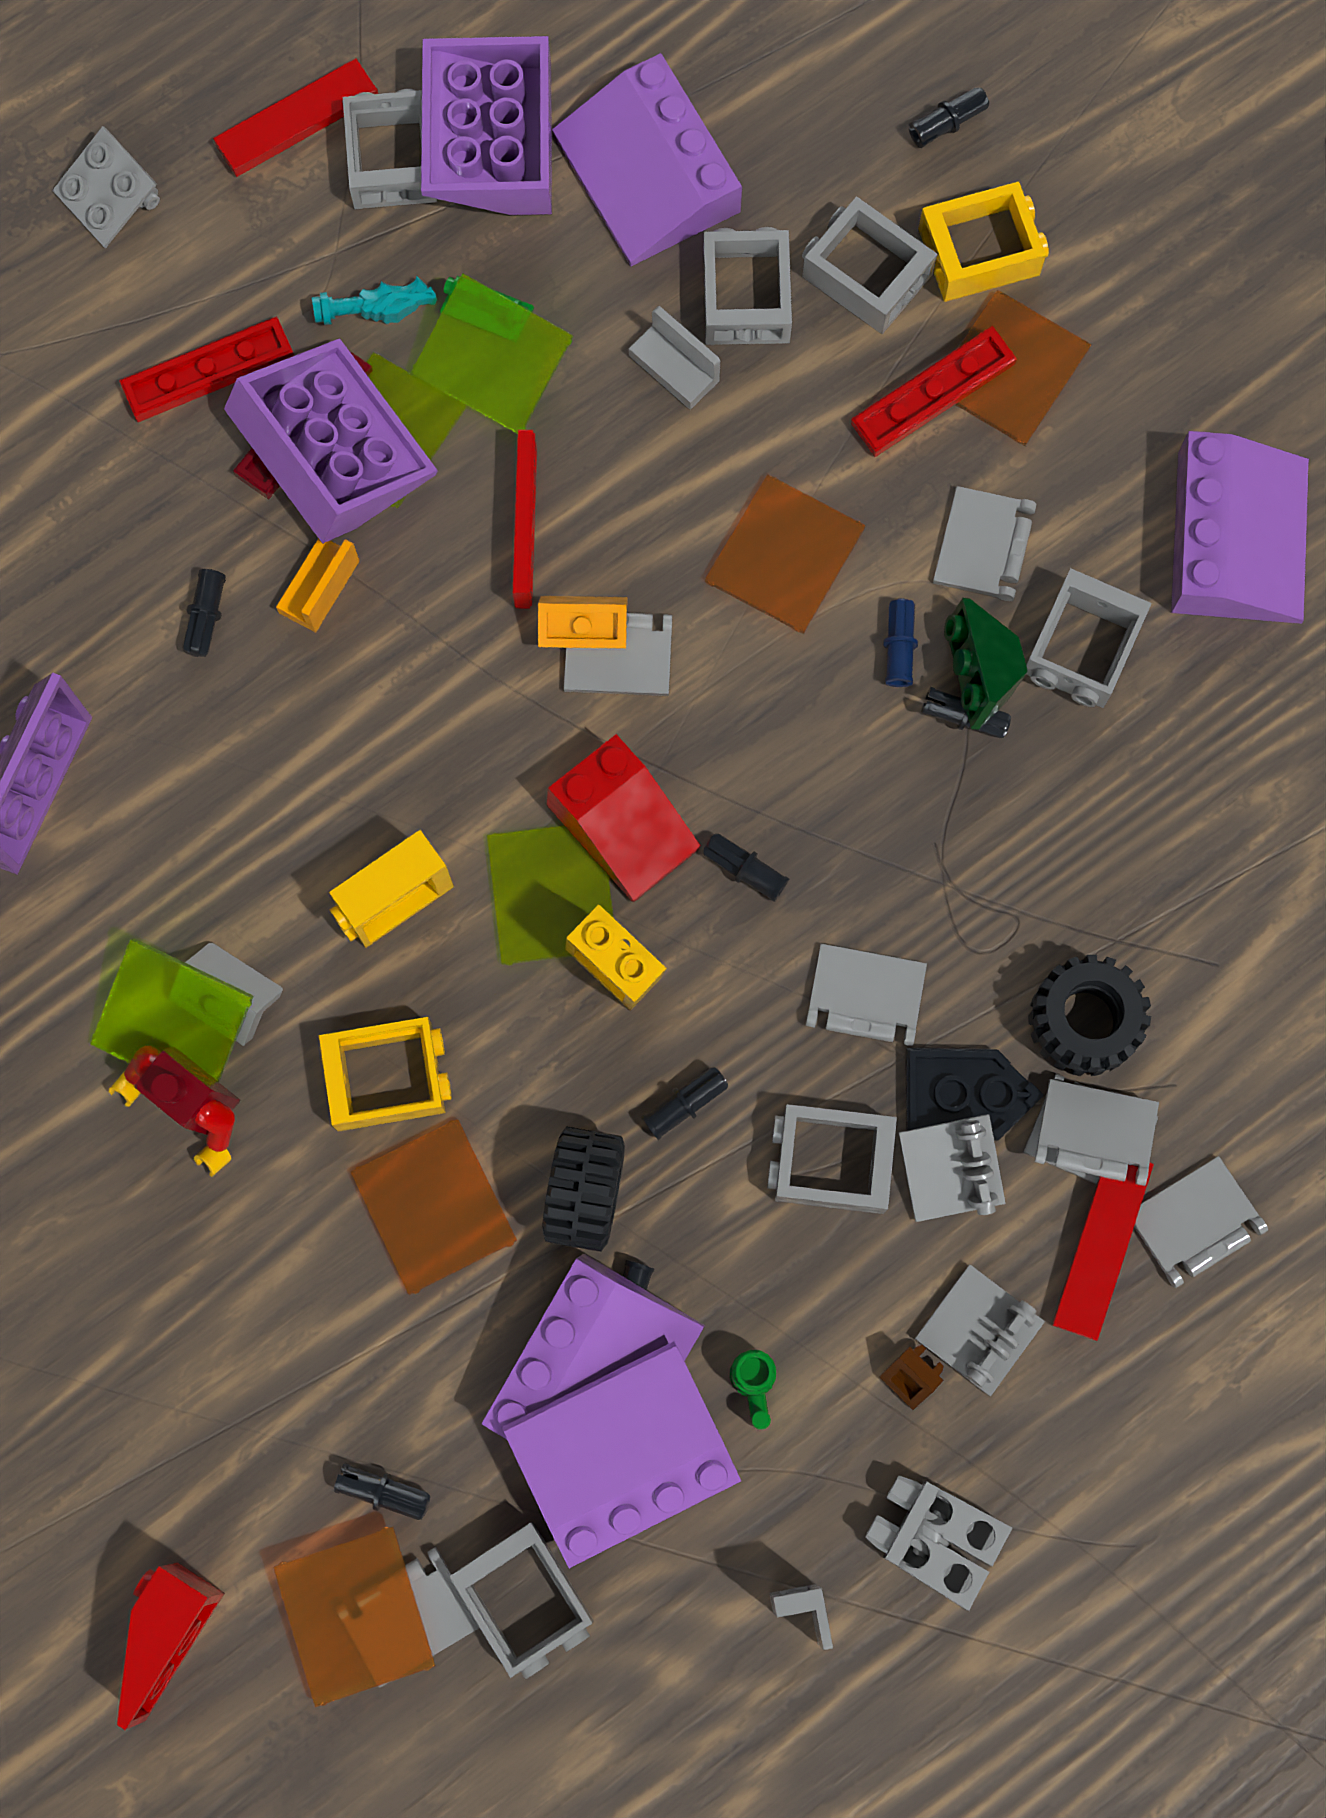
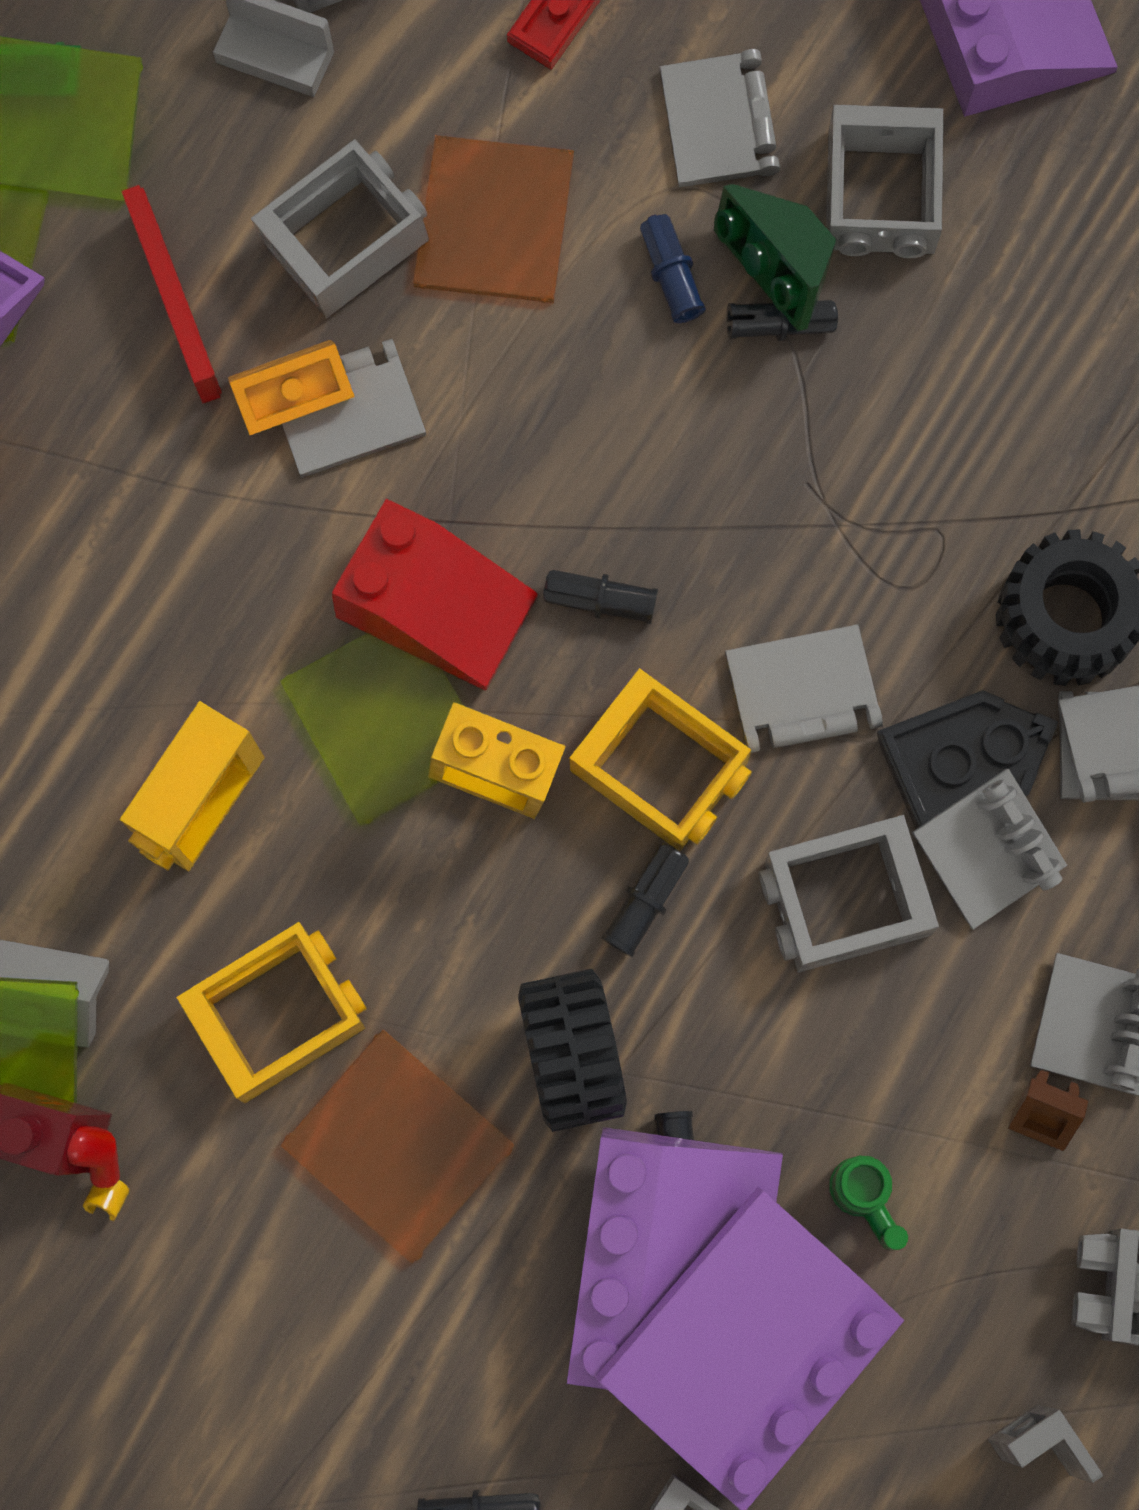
camera: 20 degrees left, 0 degrees up
(661, 485) = (315, 194): none -> light grey window
(715, 966) = (615, 724): none -> yellow window

